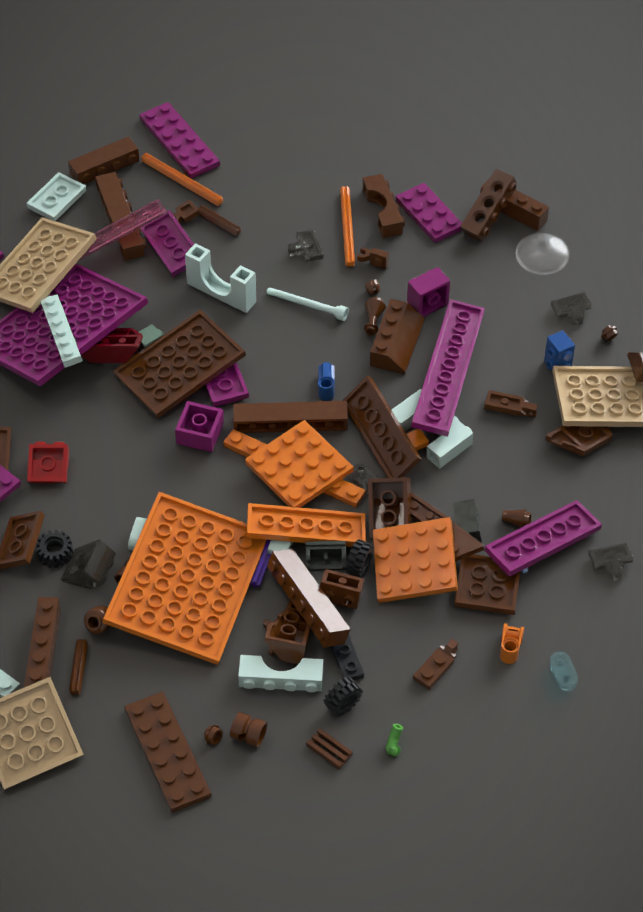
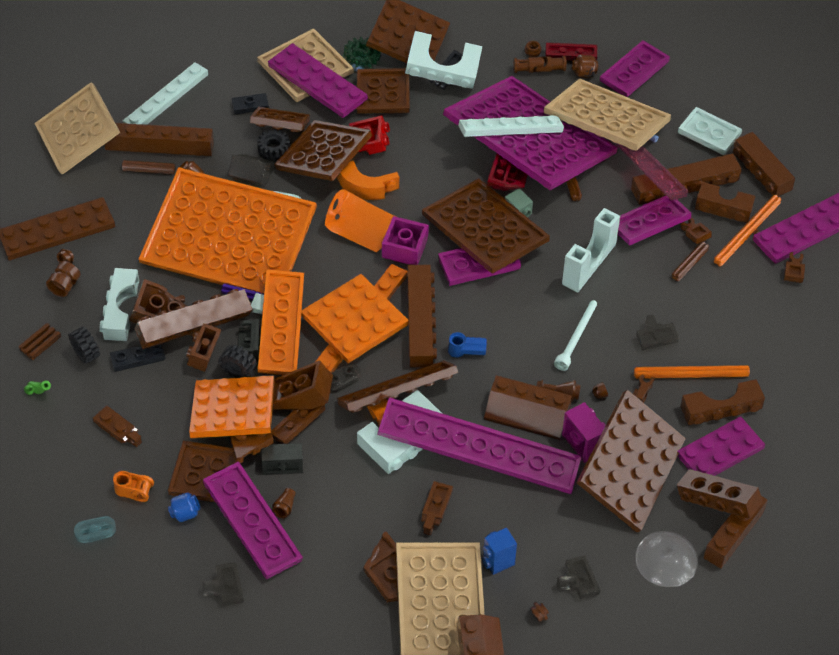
camera: 90 degrees right, 0 degrees up
(74, 495) = (323, 150): none -> reddish brown plate
(116, 470) = (367, 187): none -> orange arch
(155, 181) = (736, 209): none -> reddish brown arch
(167, 468) = (358, 220): none -> orange piece
(231, 150) = (794, 269): none -> reddish brown plate
(458, 259) = (631, 461): none -> plate
(532, 596) = (184, 507): none -> blue head

